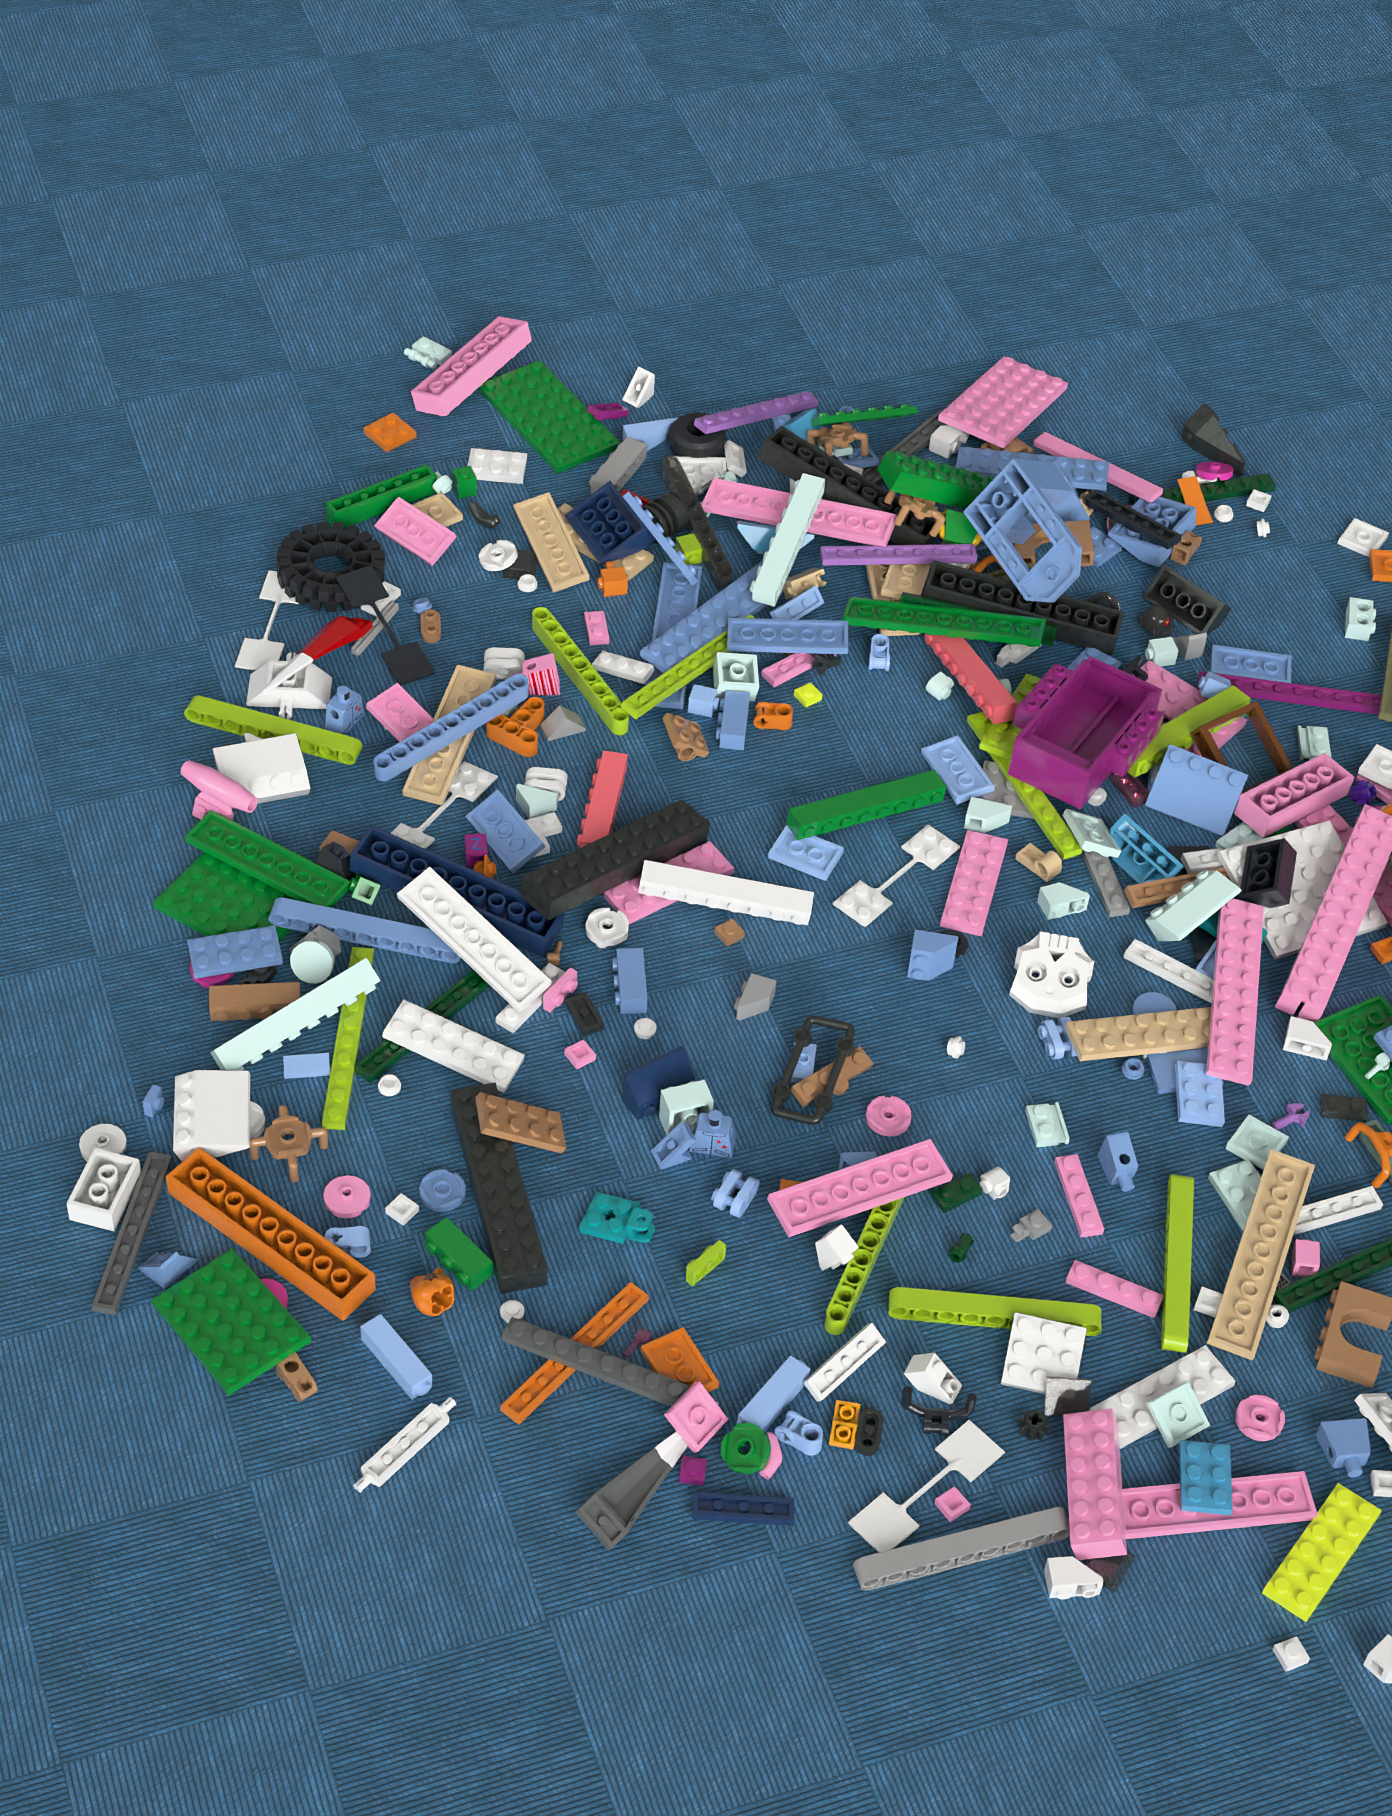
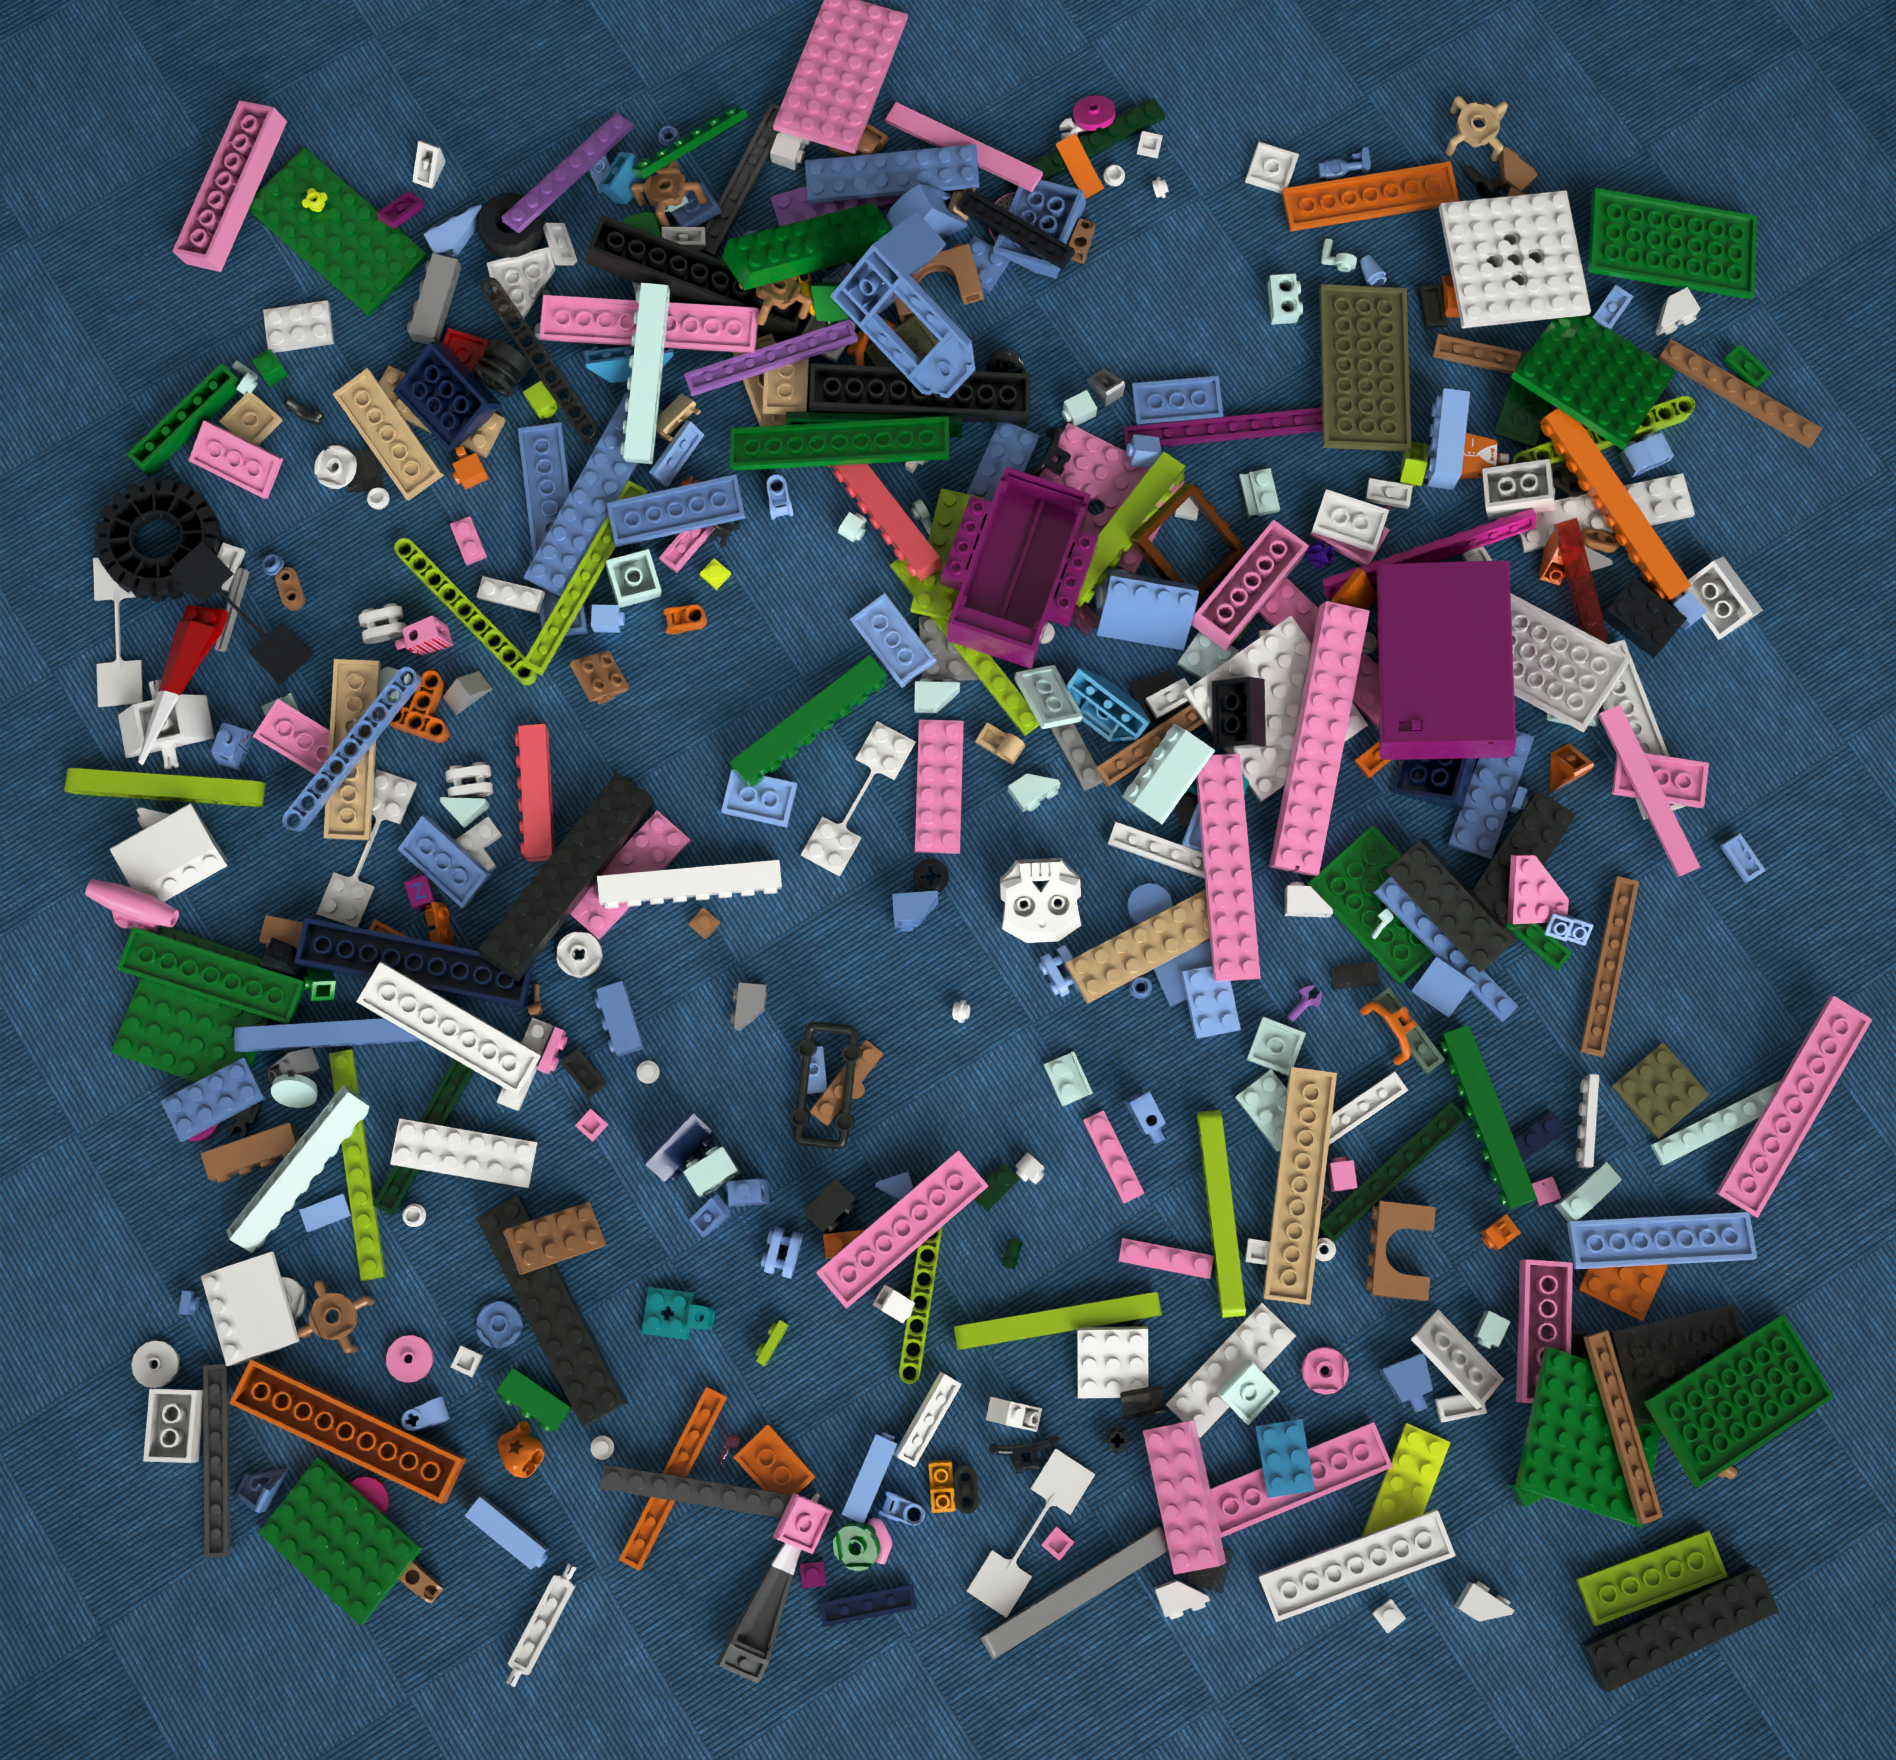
camera: 10 degrees left, 30 degrees up
(389, 432) = (166, 307): orange plate -> none
(428, 353) = (178, 164): light aqua plate -> none
(539, 389) = (315, 206): none -> neon yellow plate
(666, 543) = (511, 412): medium blue plate -> none
(729, 476) = (558, 279): hinge -> none
(733, 720) = (644, 636): medium blue brick -> none
(793, 1159) = (831, 1206): none -> pearl dark grey brick
(894, 1108) = (911, 1102): bright pink plate -> none
(1031, 1225) = (1076, 1206): light grey plate -> none
(1157, 621) = (1066, 361): clear smoke hat -> none
(1186, 601) = (1094, 325): pearl dark grey slope -> none
(1210, 440) = (1077, 65): pearl dark grey wedge -> none
(1246, 739) = (1187, 510): none -> white tile
(1265, 1589) = (1356, 1565): none -> white plate

